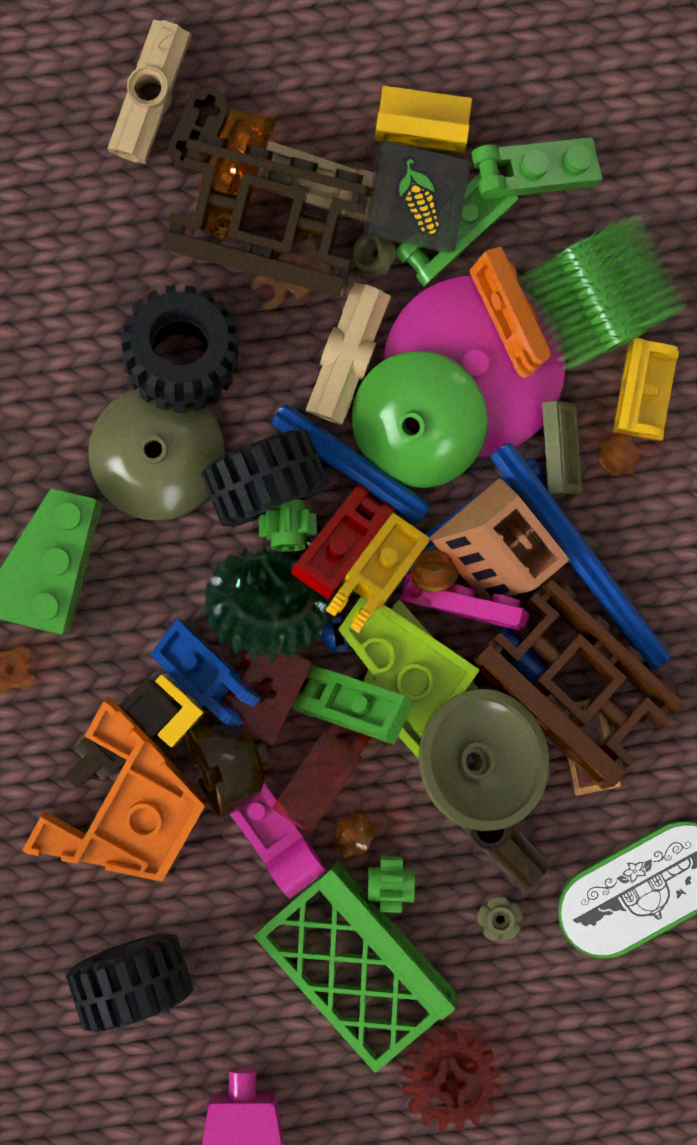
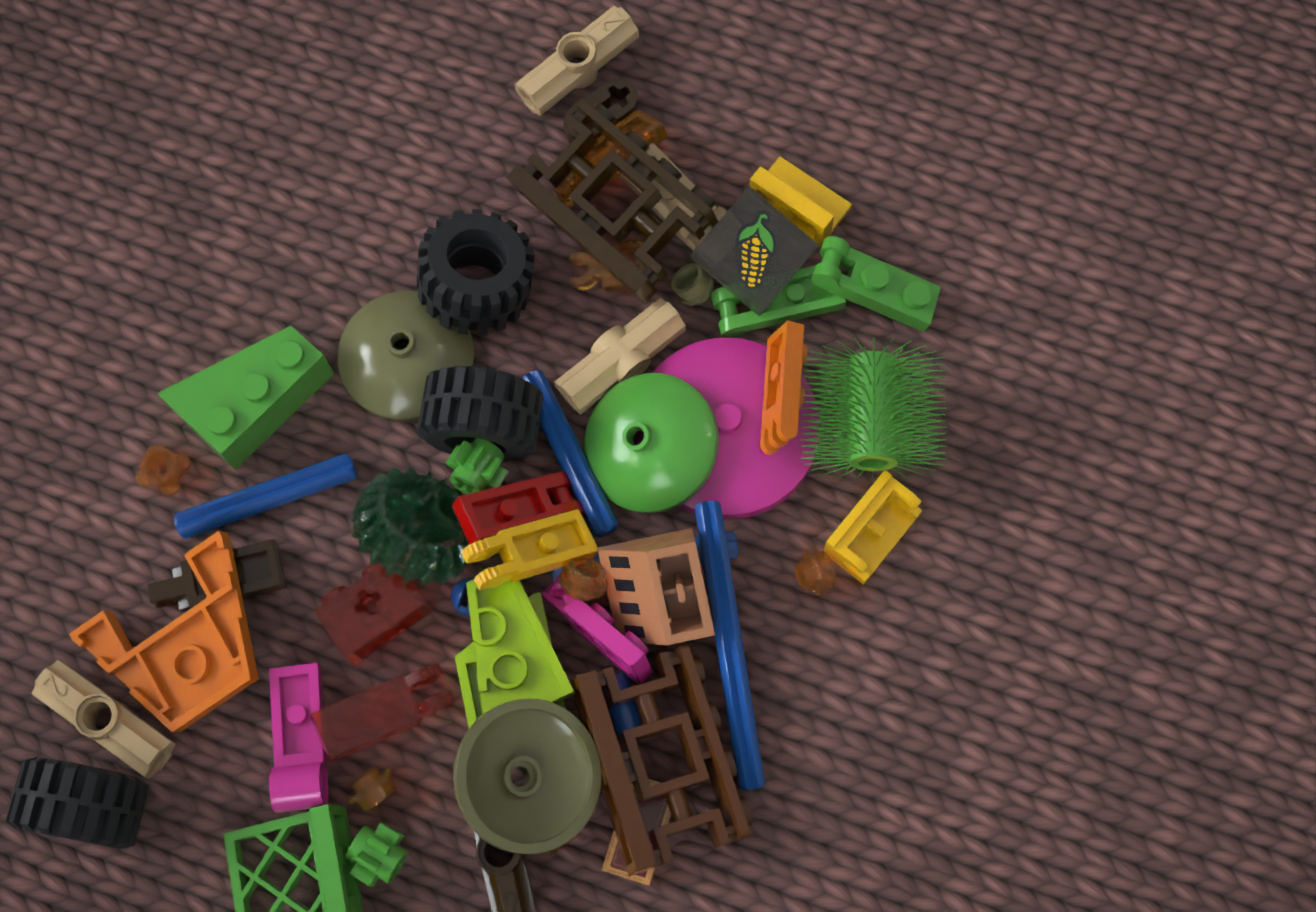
camera: 30 degrees right, 15 degrees down
(68, 902) = (80, 704): none -> tan piece
(113, 643) = (265, 496): none -> blue axle
(186, 718) = (283, 587): yellow panel -> none
(202, 672) = (324, 559): blue hinge -> none
(228, 765) = (293, 650): dark brown cylinder -> none
(353, 704) = (439, 659): bright green plate -> none
(562, 448) = (765, 537): olive tile -> none

